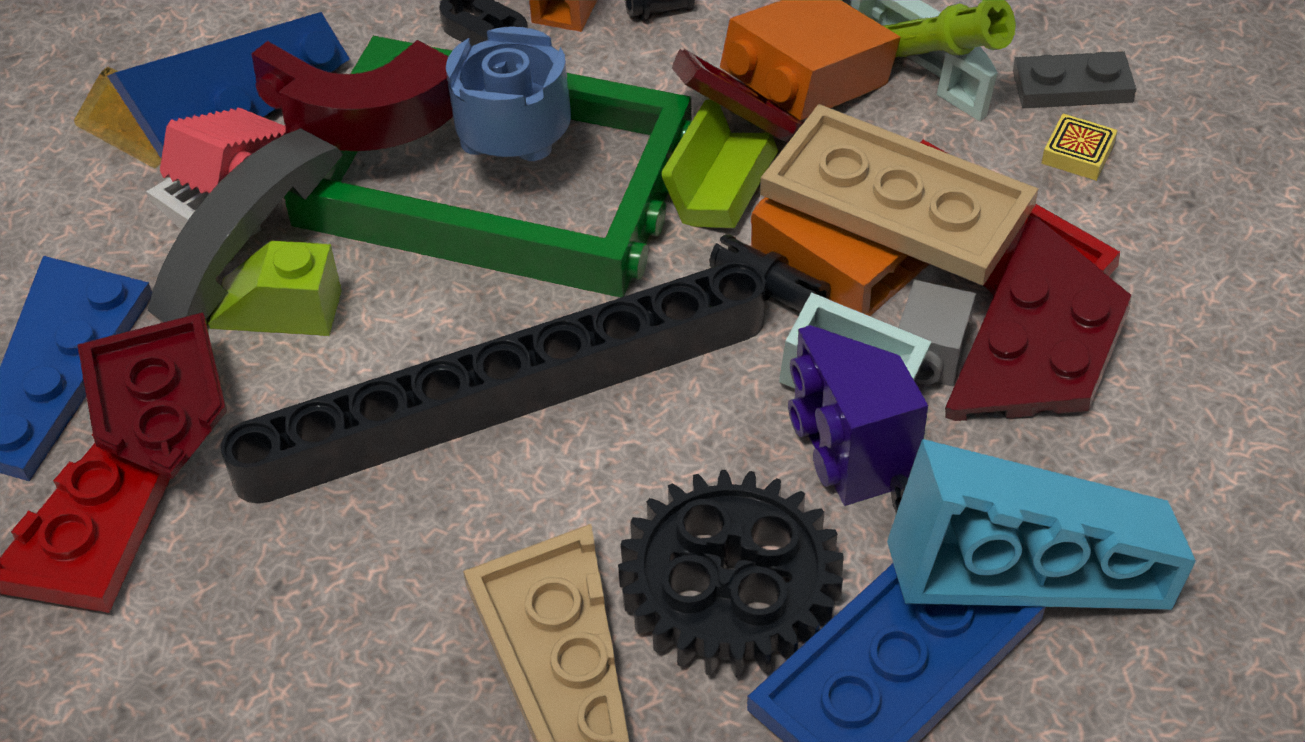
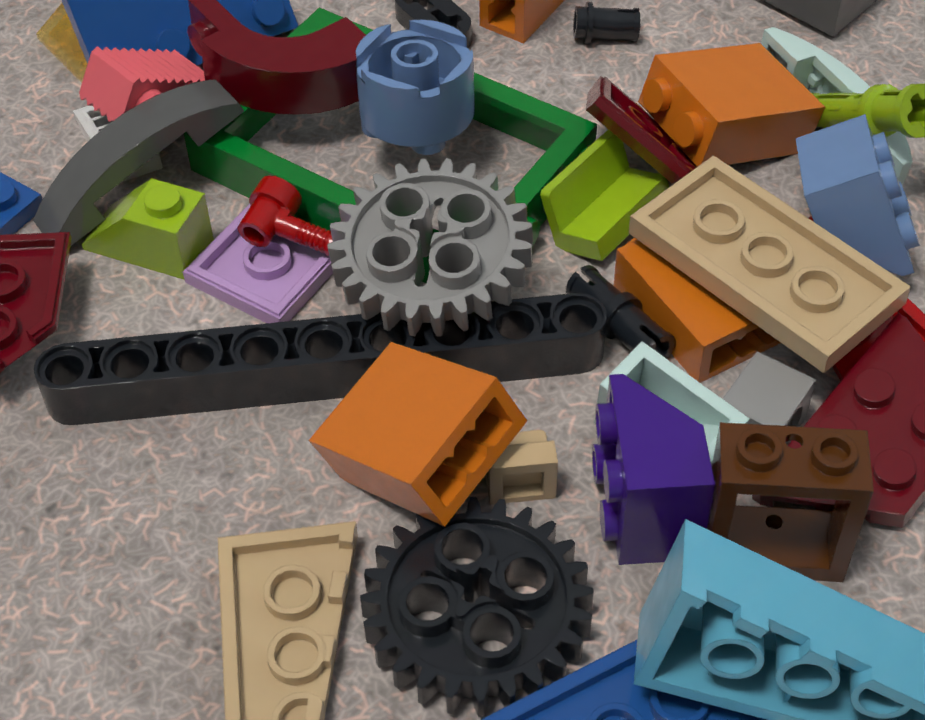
camera: 15 degrees right, 0 degrees up
(400, 250) = (273, 213): none -> red brick
(406, 301) = (260, 281): none -> lavender tile
(530, 247) = (471, 259): none -> light grey gear
(627, 424) = (419, 431): none -> orange brick
(720, 434) = (524, 470): none -> tan panel
(959, 108) = (857, 193): none -> medium blue slope
(1024, 365) = (827, 466): none -> reddish brown window

